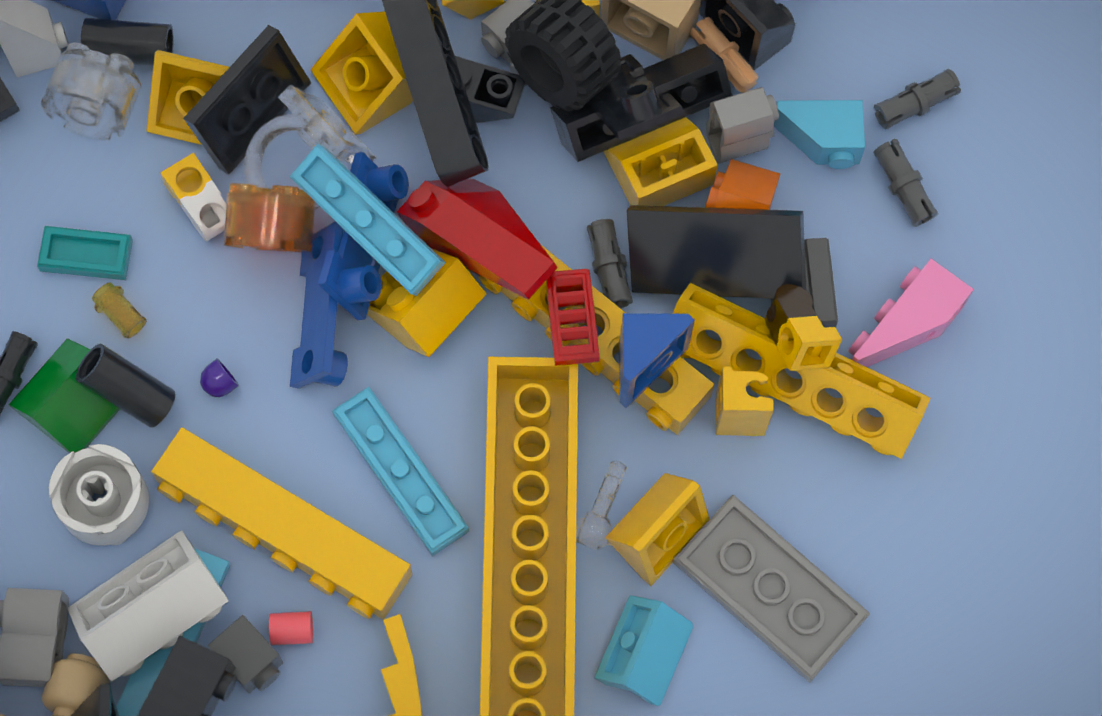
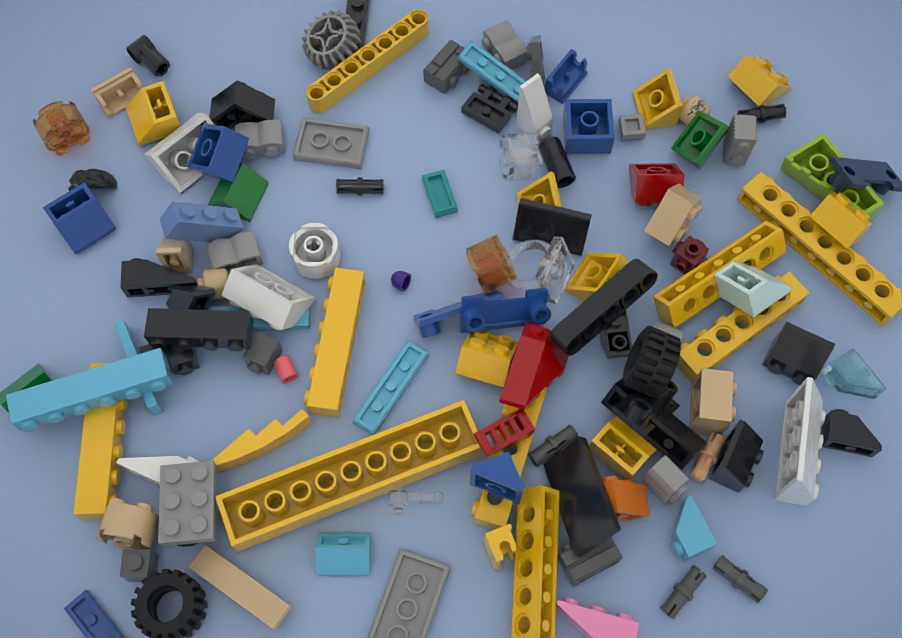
camera: 70 degrees right, 5 degrees down
(60, 404) = (362, 220): green slope -> none
(118, 309) = (418, 215): clear yellow pin -> none
(125, 385) = (374, 237): black pin -> none
(196, 195) = (493, 223): leg -> none
(367, 219) = (507, 306): medium azure tile -> none
(660, 526) = (412, 531): yellow slope -> none
(799, 331) = (551, 558): yellow leg -> none

